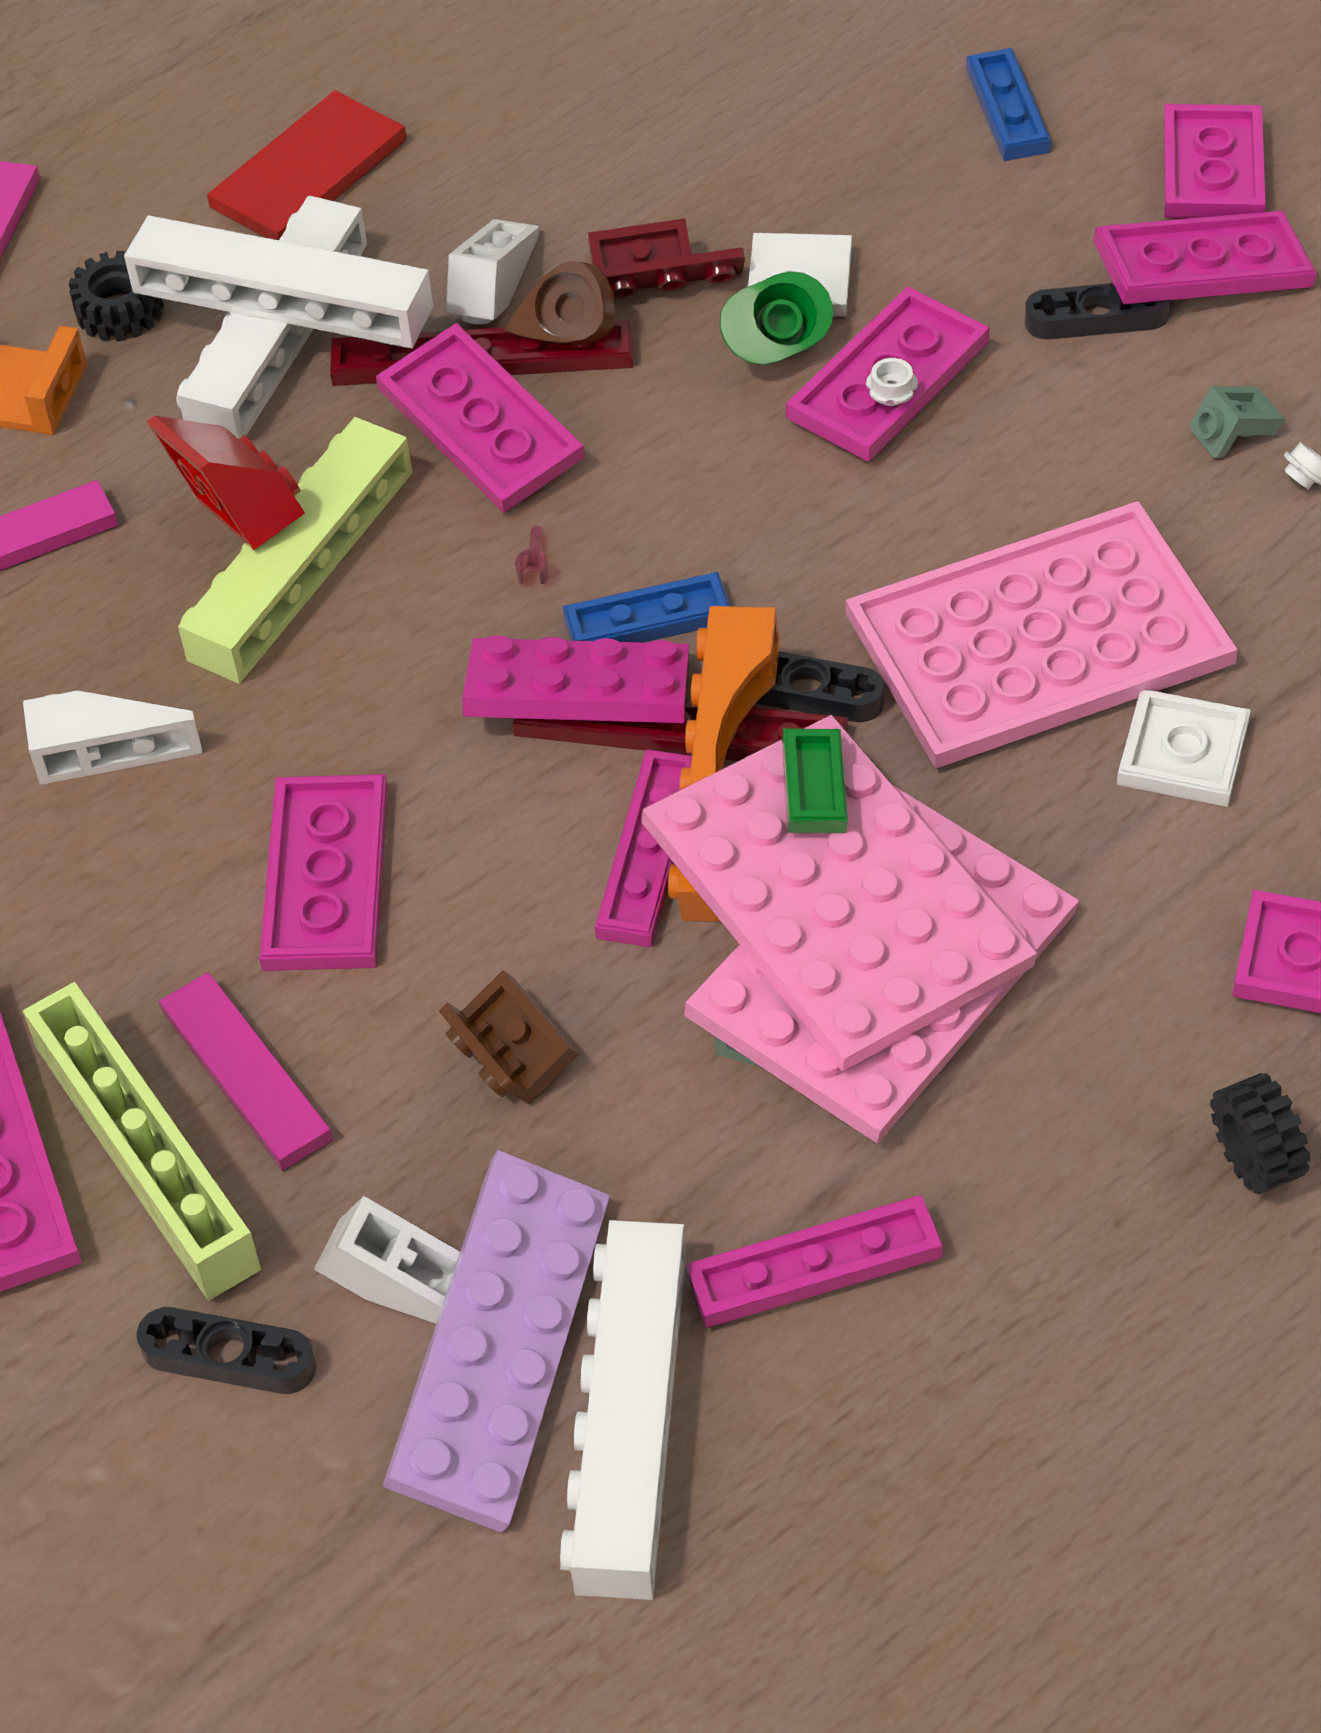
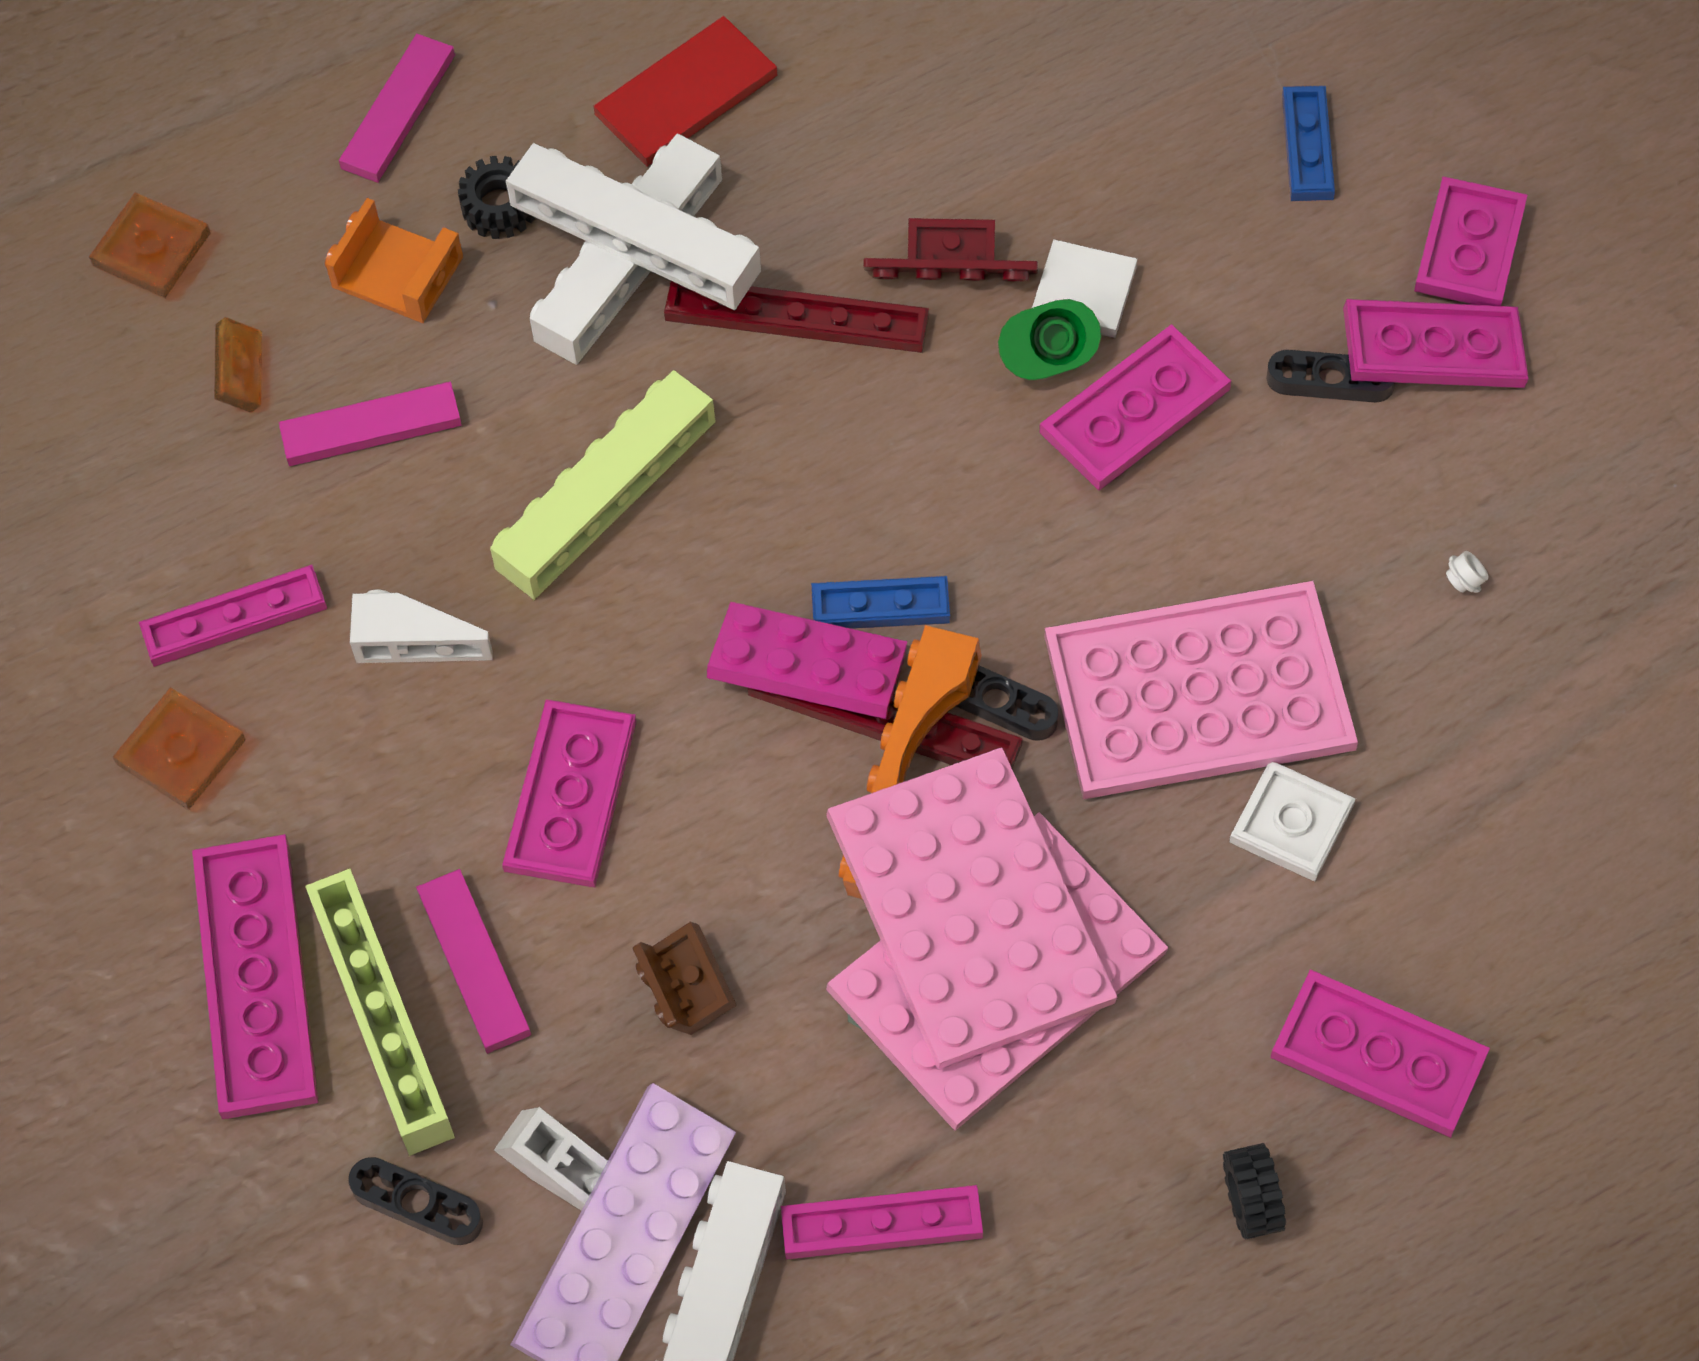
camera: 10 degrees right, 10 degrees up
(231, 478) = (558, 414): red slope -> none
(480, 417) = (779, 385): dark pink plate -> none
(488, 270) = (819, 232): white slope -> none
(533, 557) = (798, 528): clear pink hand -> none
(567, 306) = (874, 293): reddish brown piece -> none
(640, 866) = (818, 853): dark pink tile -> none
(814, 781) = (971, 812): green tile -> none
(892, 381) = (1132, 415): white plate -> none
(1233, 413) = (1418, 510): sand green bracket -> none

